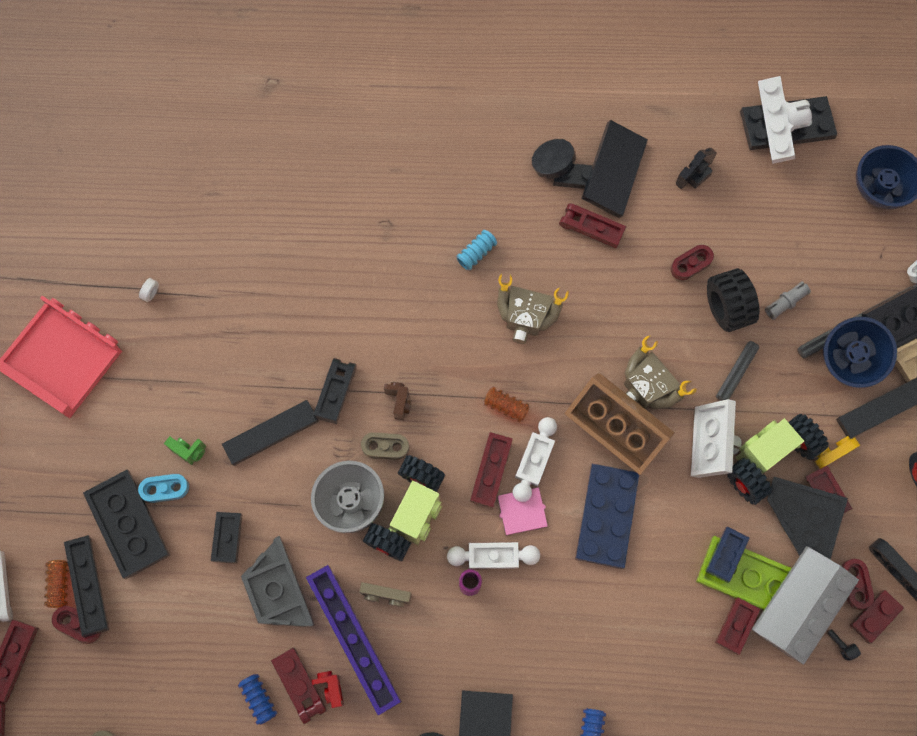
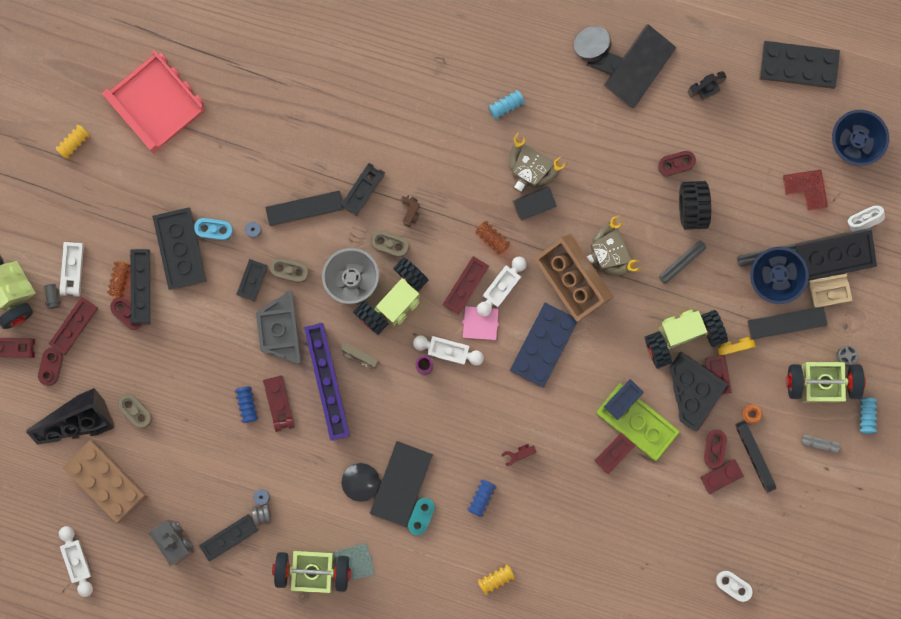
camera: 20 degrees right, 10 degrees up
(148, 290) = (237, 66): white tile -> none
(182, 449) = (233, 201): bright green bracket -> none
(209, 472) = (253, 225): none -> sand blue piece
(270, 512) = (289, 271): none -> dark tan plate
(333, 693) = (302, 416): red bracket -> none
(543, 351) = (534, 203): none -> black hinge
(592, 225) = (607, 110): dark red plate -> none
(626, 658) = (524, 451): none -> dark red plate
(714, 439) = (643, 310): white plate -> none
(781, 118) = (790, 62): white plate -> none
(787, 300) = (742, 216): light grey pin -> none
(805, 605) = (667, 452): light grey slope -> none
(848, 245) = (810, 183): none -> clear red plate
(848, 652) = (691, 496): black hand -> none
(888, 523) = (758, 414): none -> orange plate

